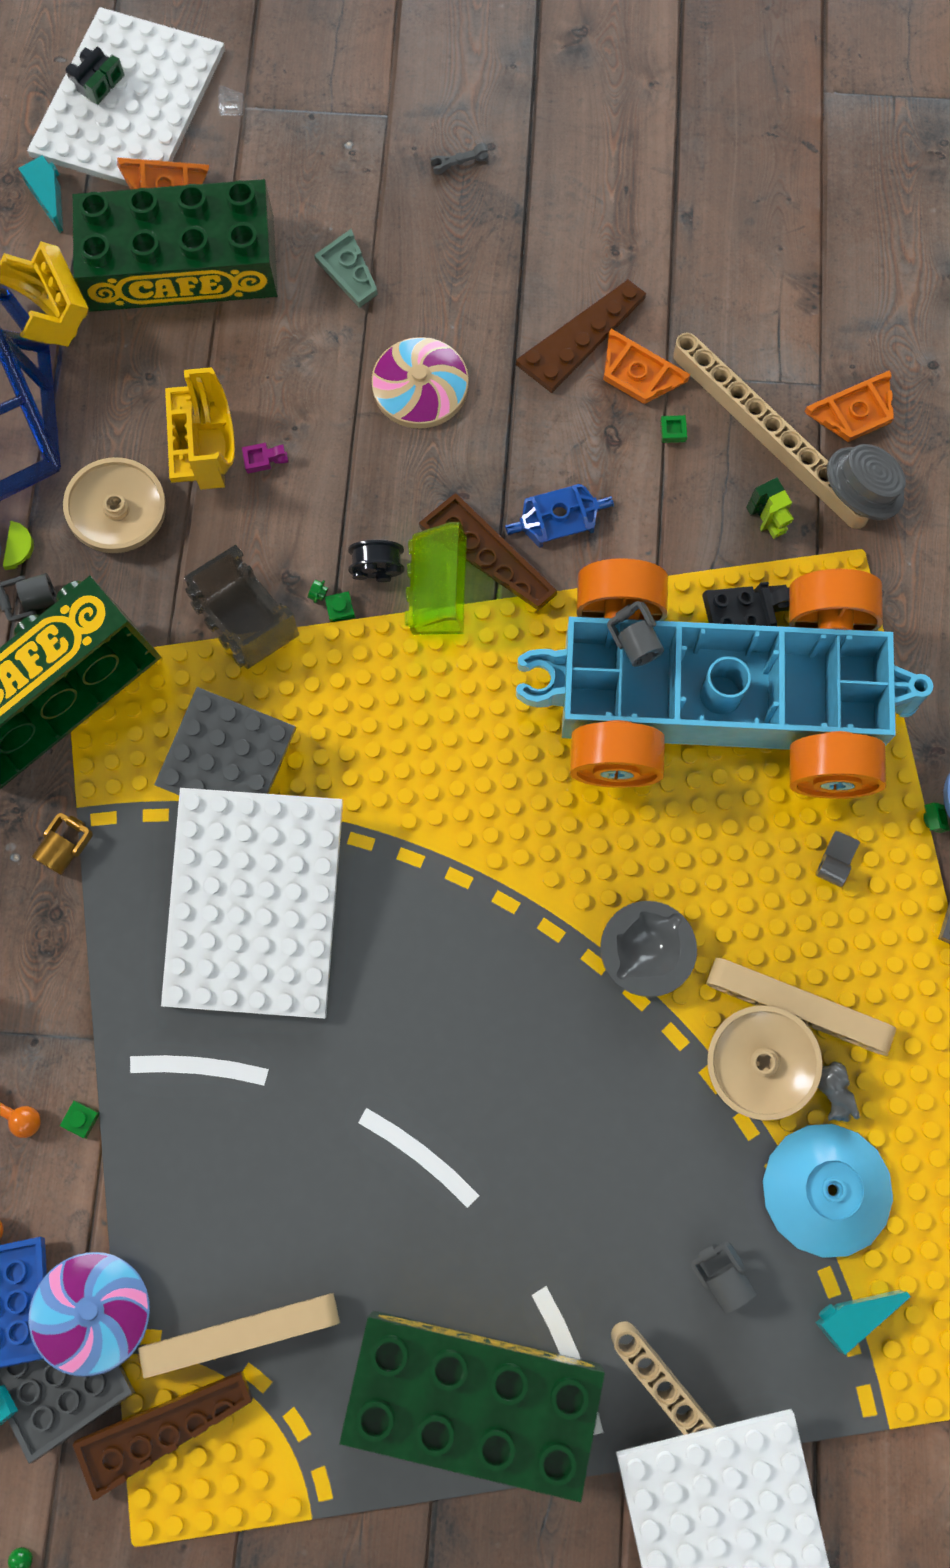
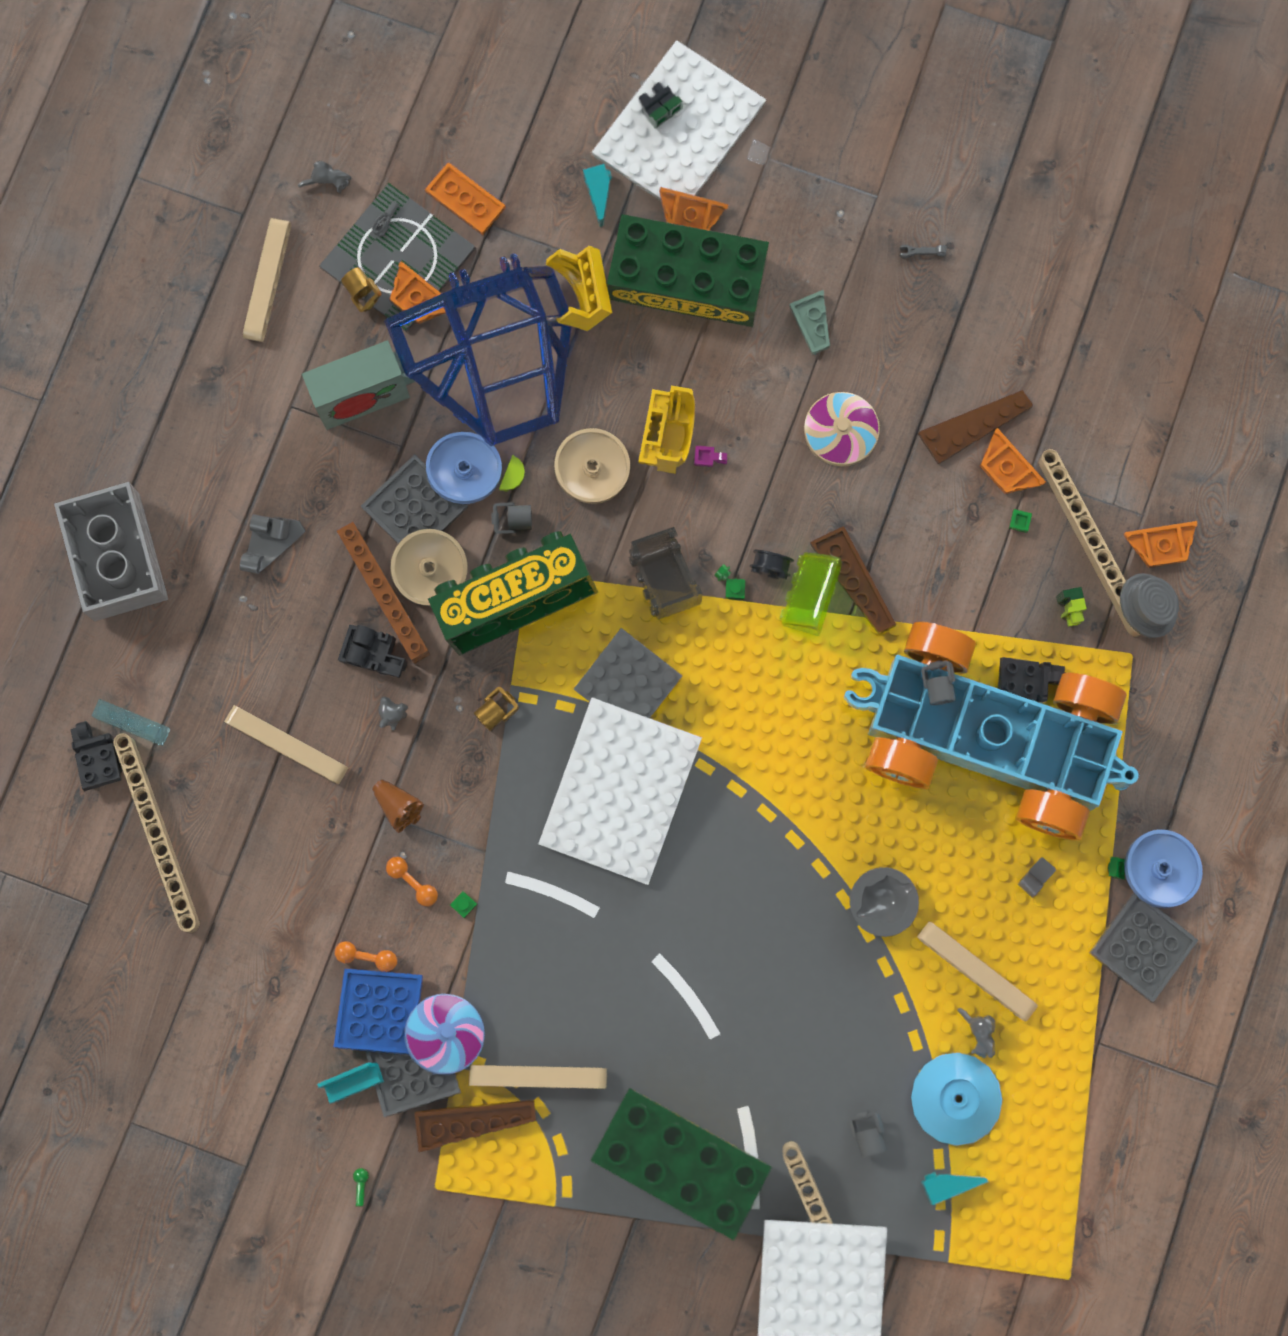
camera: 15 degrees right, 5 degrees up
(543, 525) = (901, 569): blue plate -> none
(765, 1062) = (940, 1002): tan dish -> none

